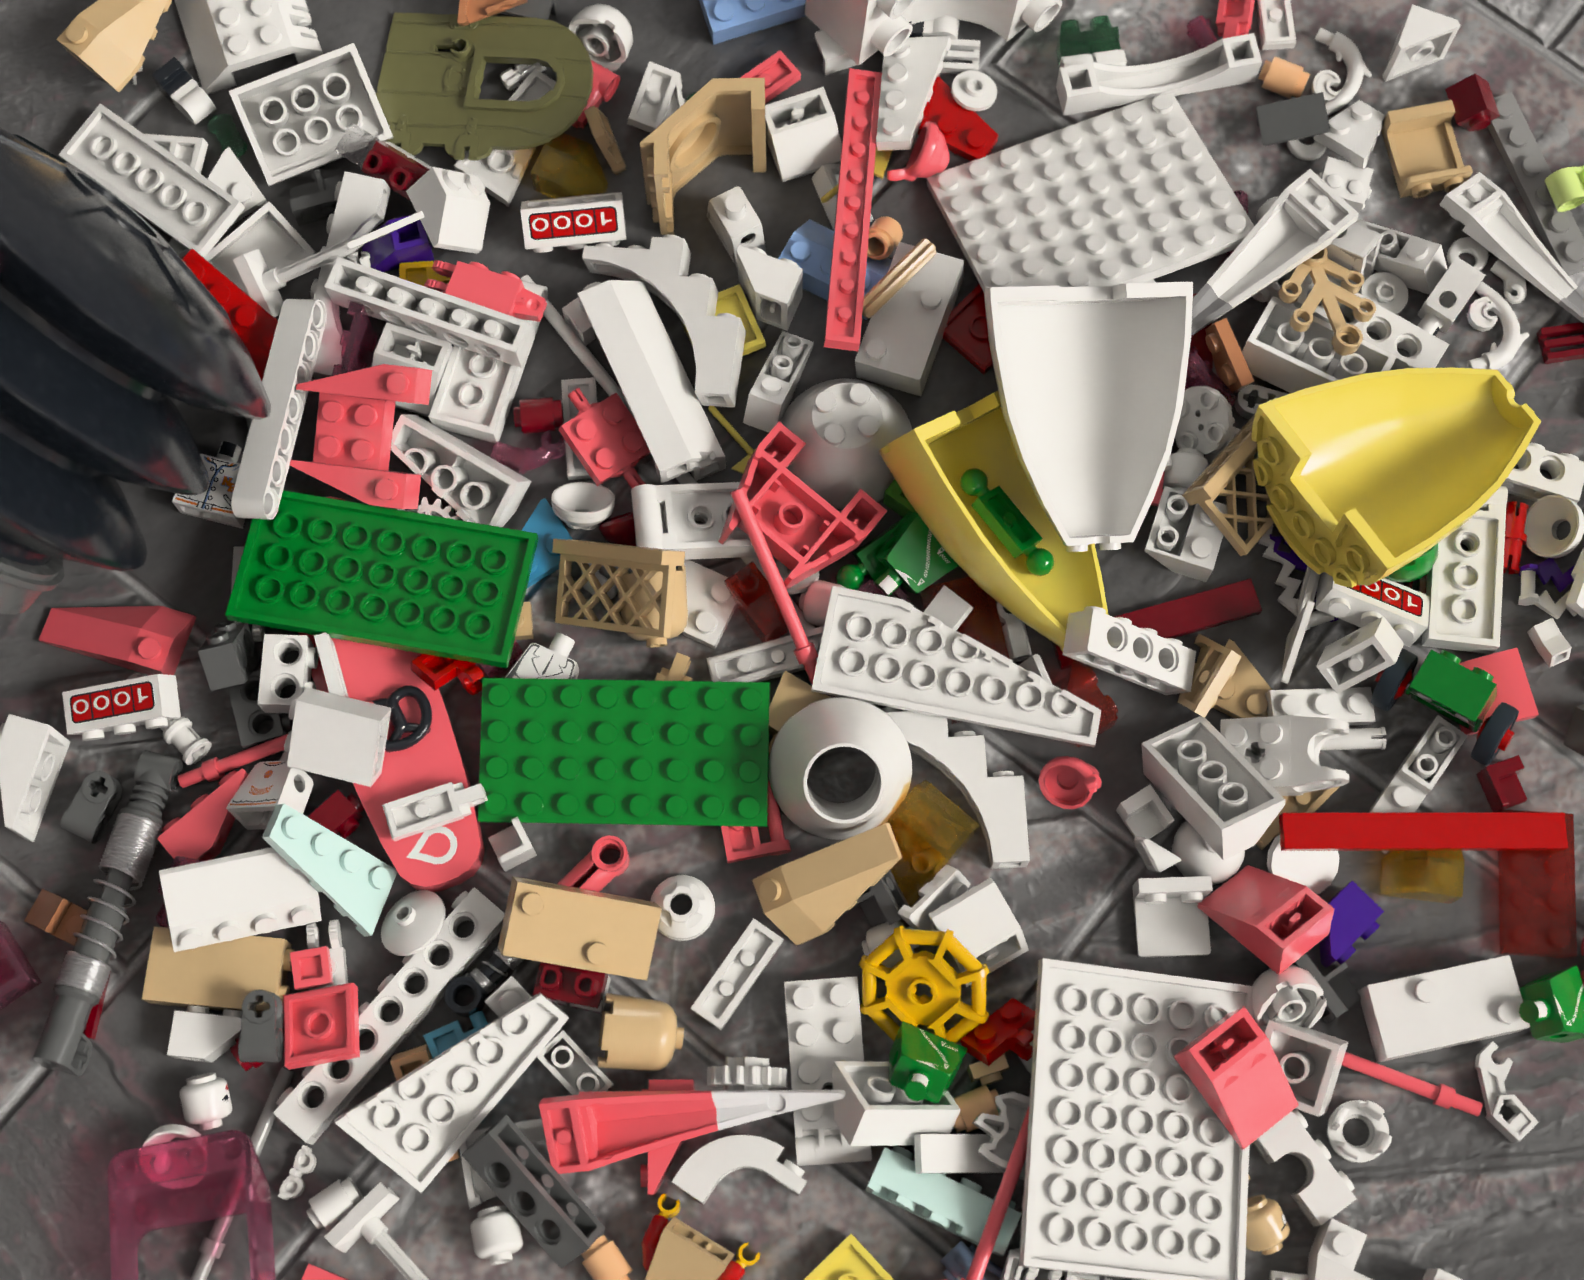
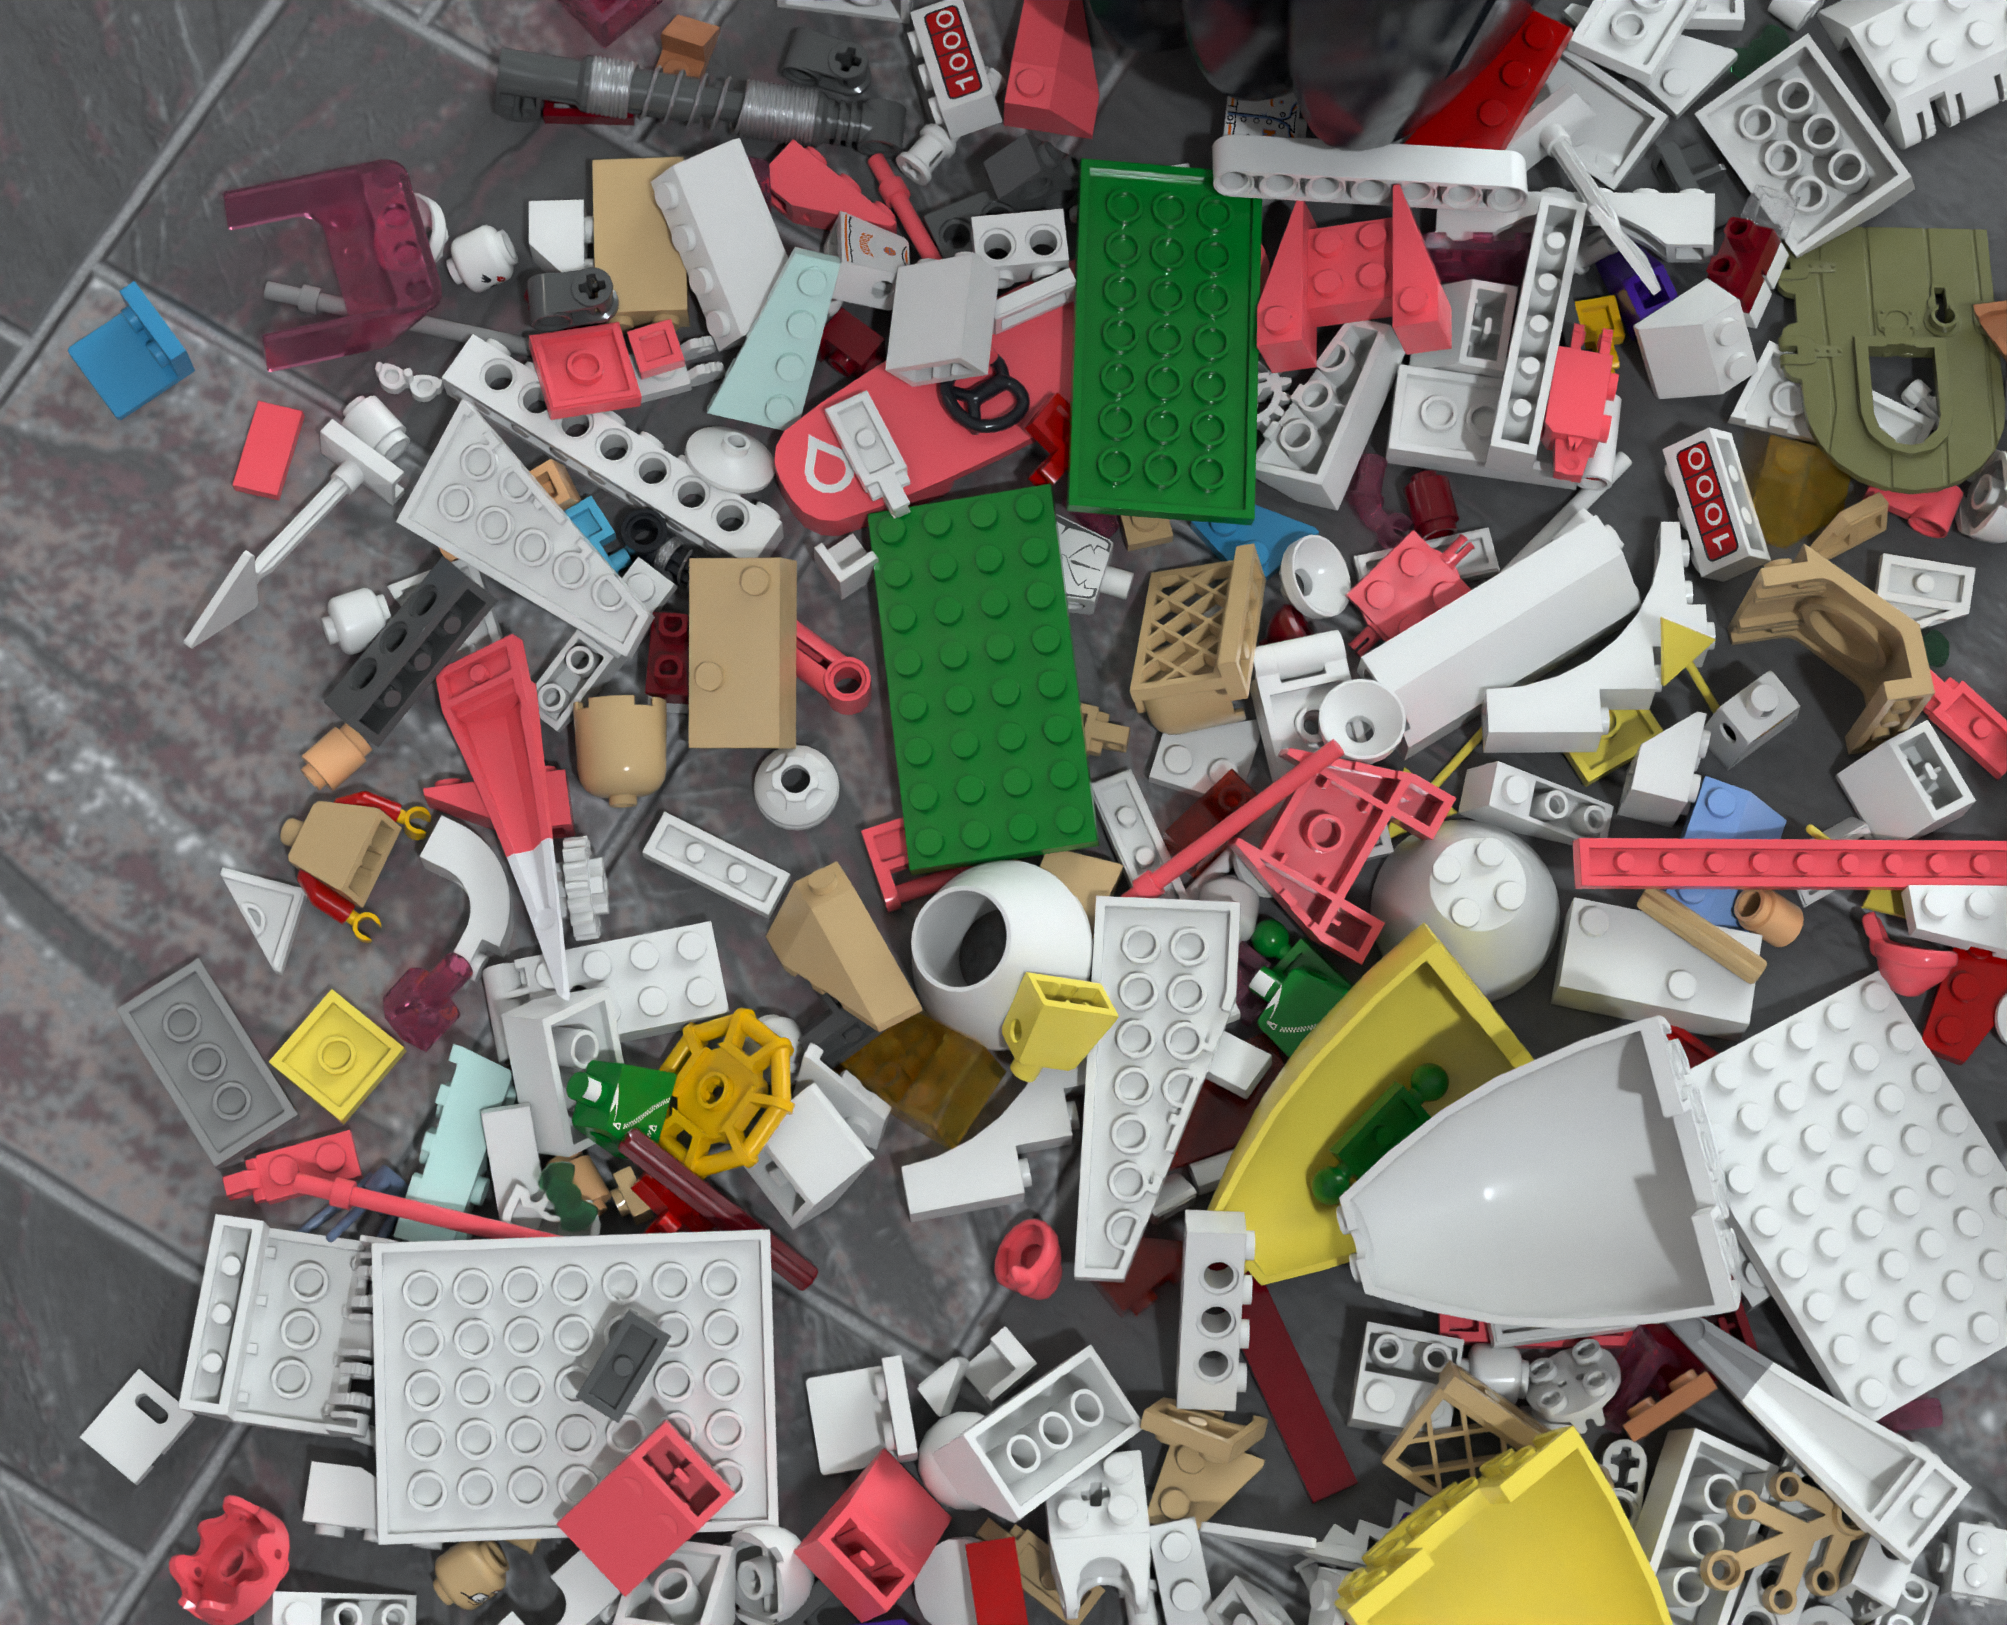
camera: 80 degrees right, 0 degrees up
(685, 255) = (1678, 650): none -> light yellow piece
(705, 463) = (1365, 702): none -> white piece
(821, 1213) = (421, 1001): none -> clear pink piece
(909, 728) = (1055, 1023): none -> light yellow torso
(993, 1113) = (567, 1197): none -> clear green piece
(1005, 1007) = (712, 1203): none -> dark red axle
(1138, 1080) = (623, 1366): none -> dark grey panel

